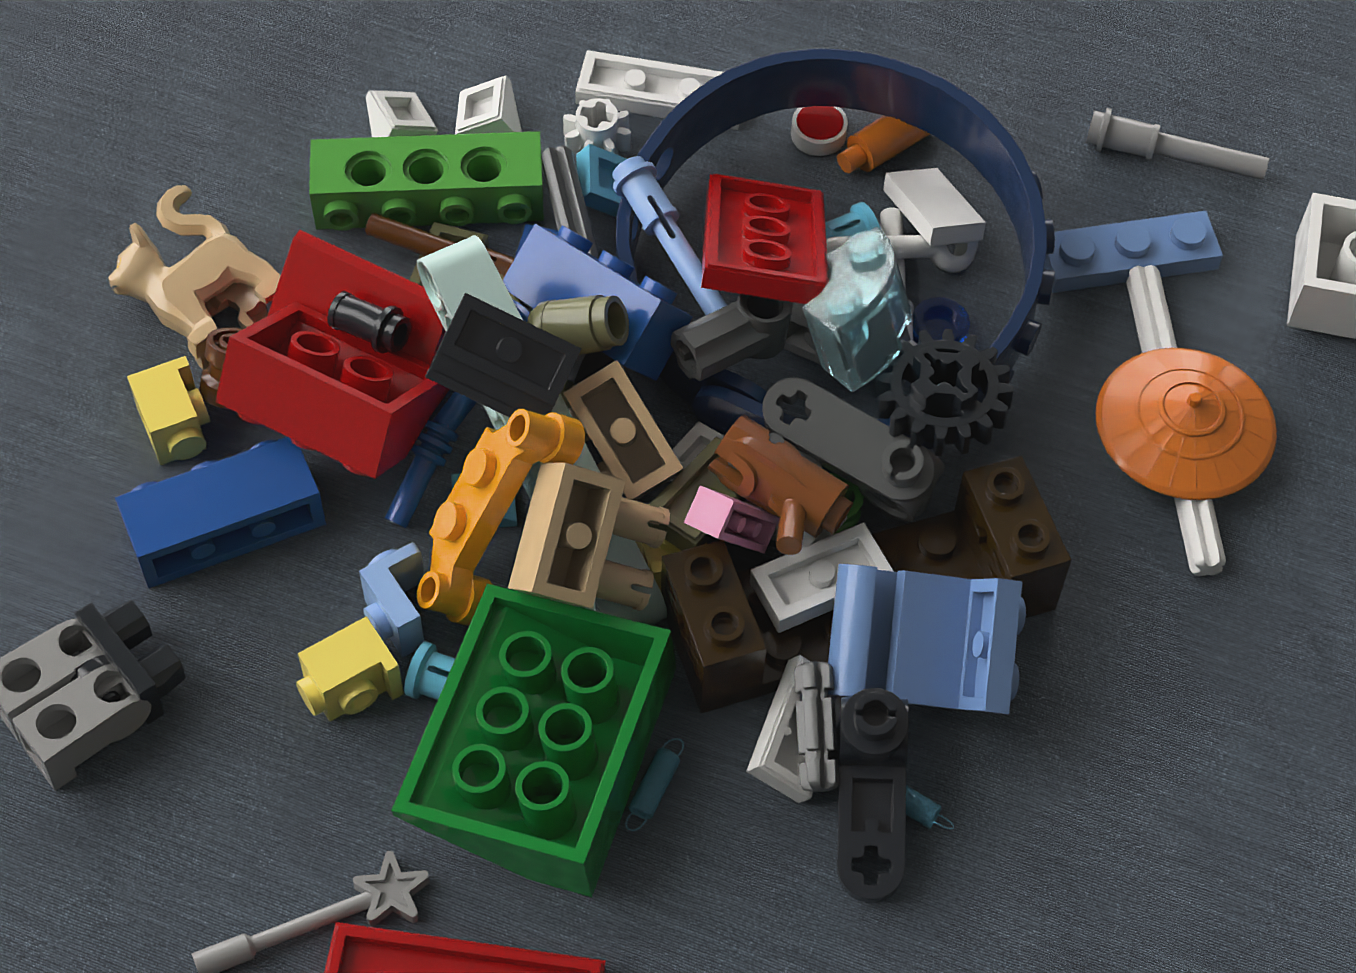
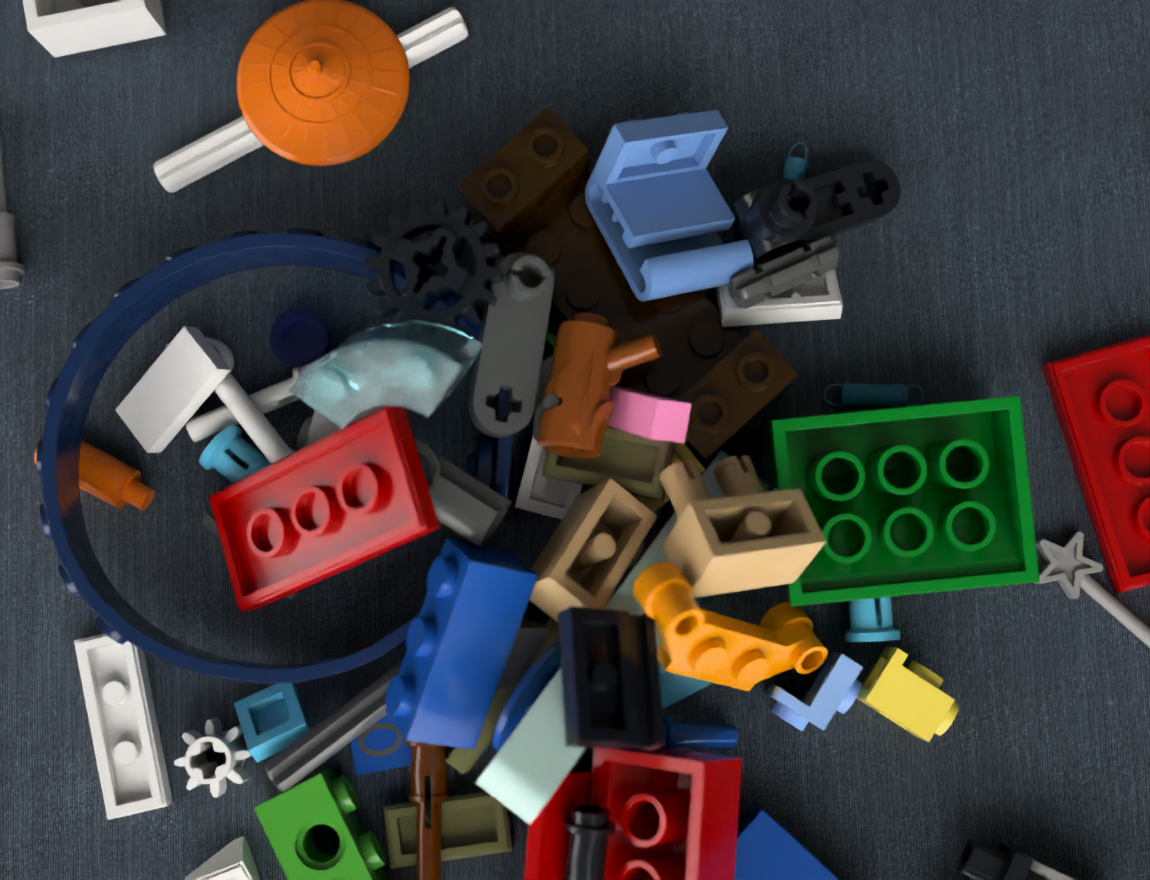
camera: 105 degrees left, 25 degrees up
(587, 322) = (521, 634): olive piece -> none
(638, 184) = (319, 652): light blue pin -> none
(805, 583) = (634, 319): white plate -> none
(819, 129) = (114, 542): tile -> none
(1109, 251) = (132, 190): medium blue plate -> none

